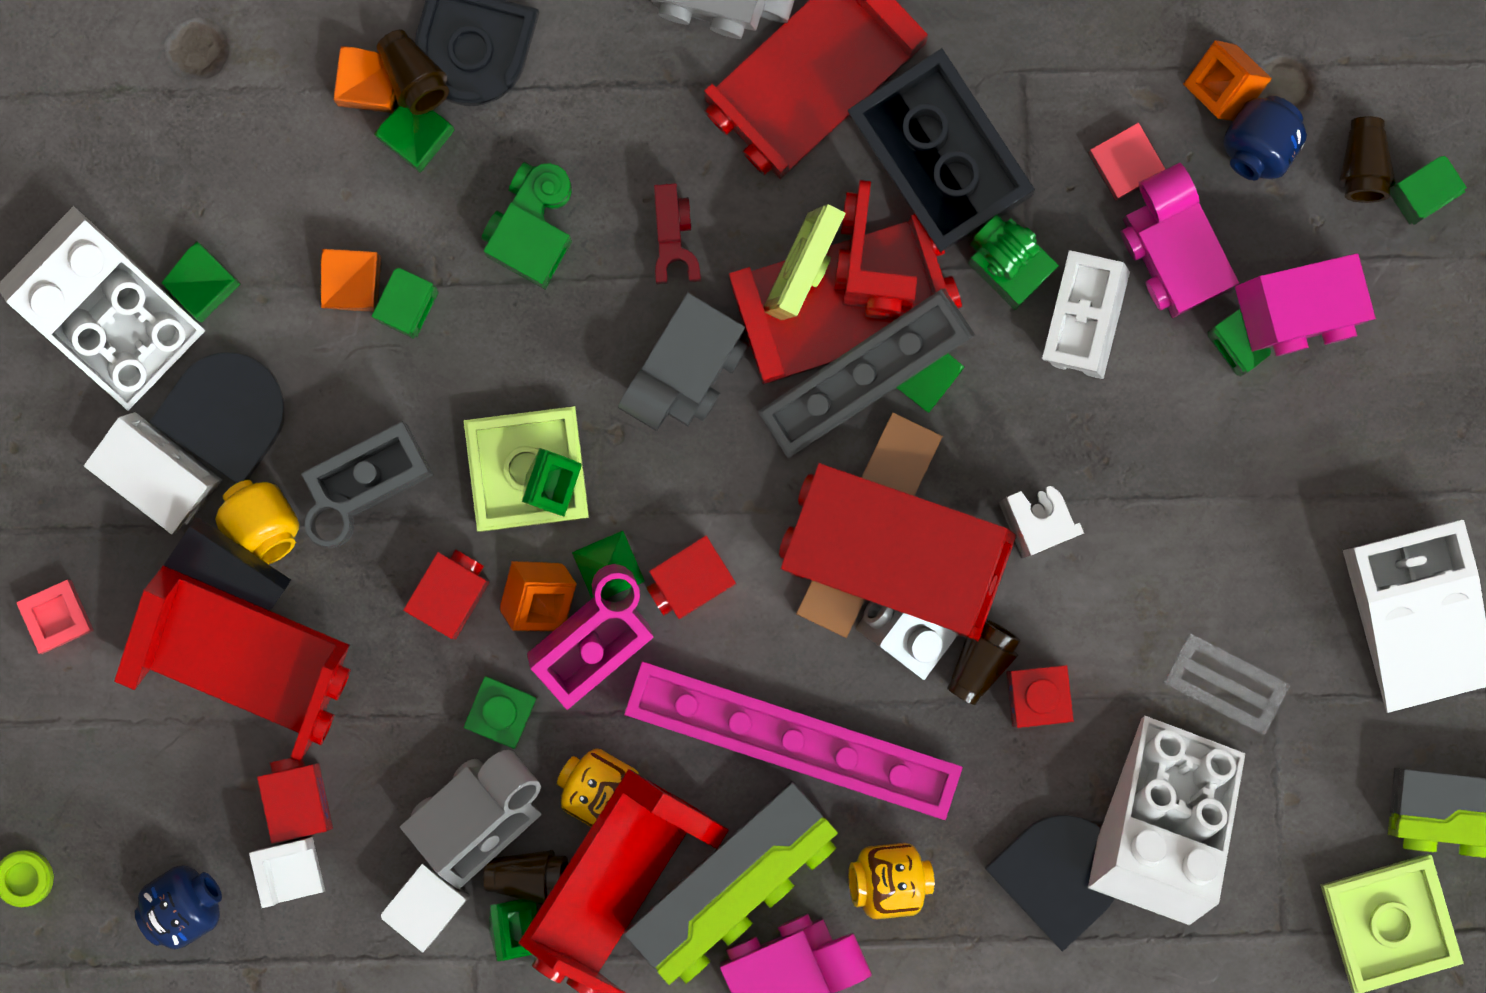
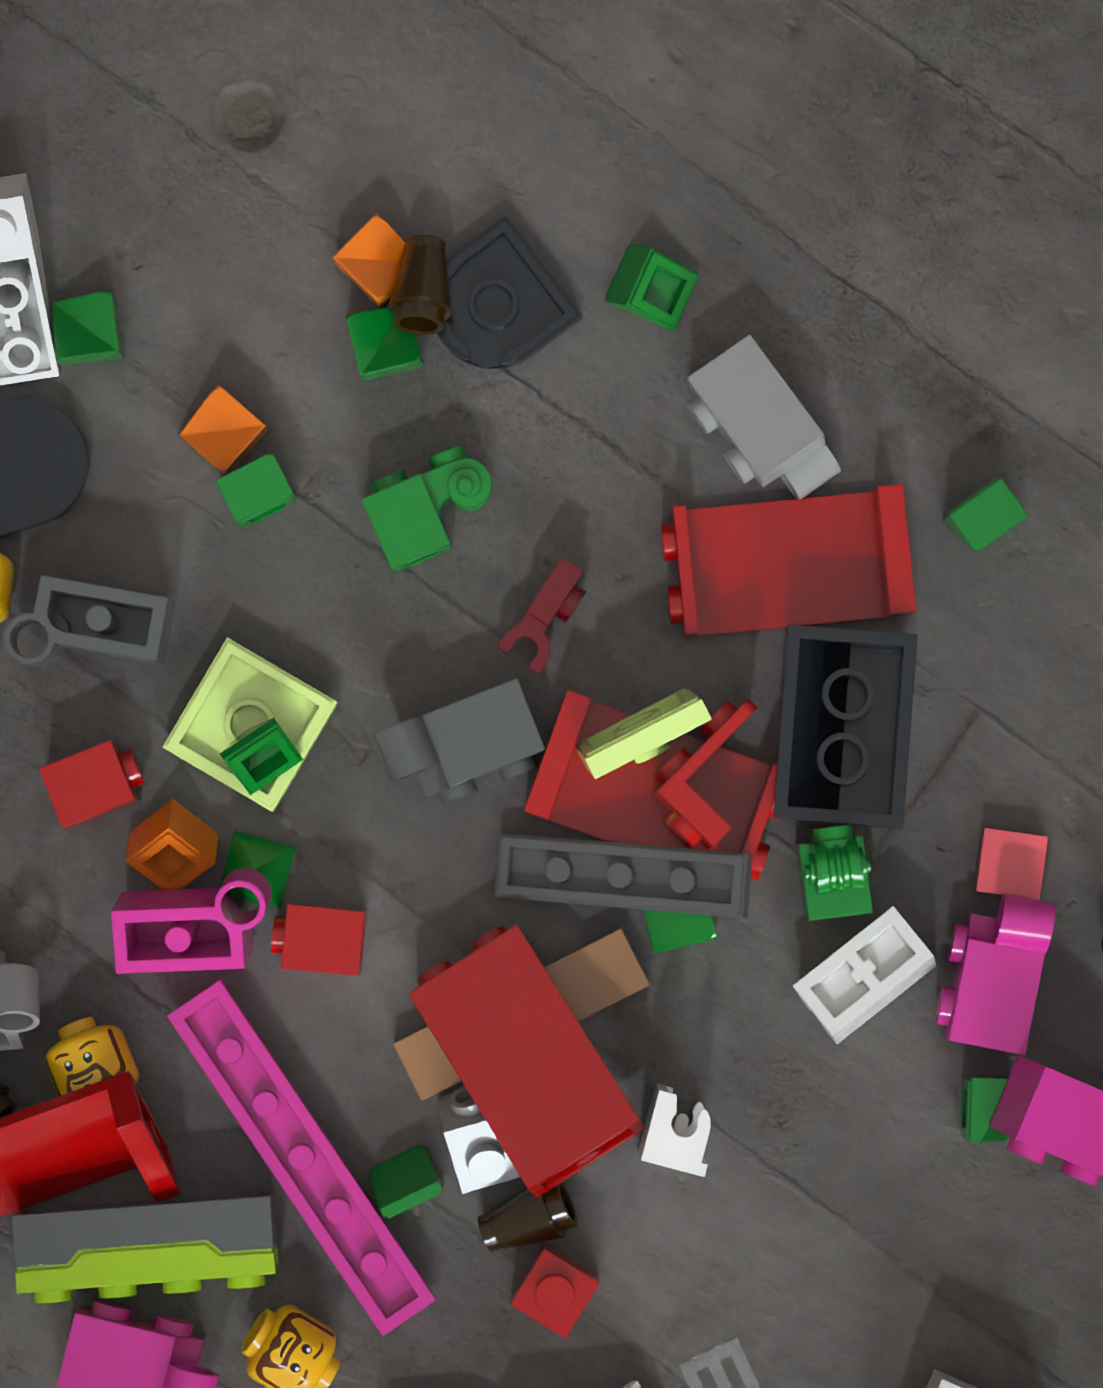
camera: 35 degrees right, 0 degrees up
(500, 712) = (58, 926): green plate -> none
(877, 701) = (405, 1181): none -> green slope

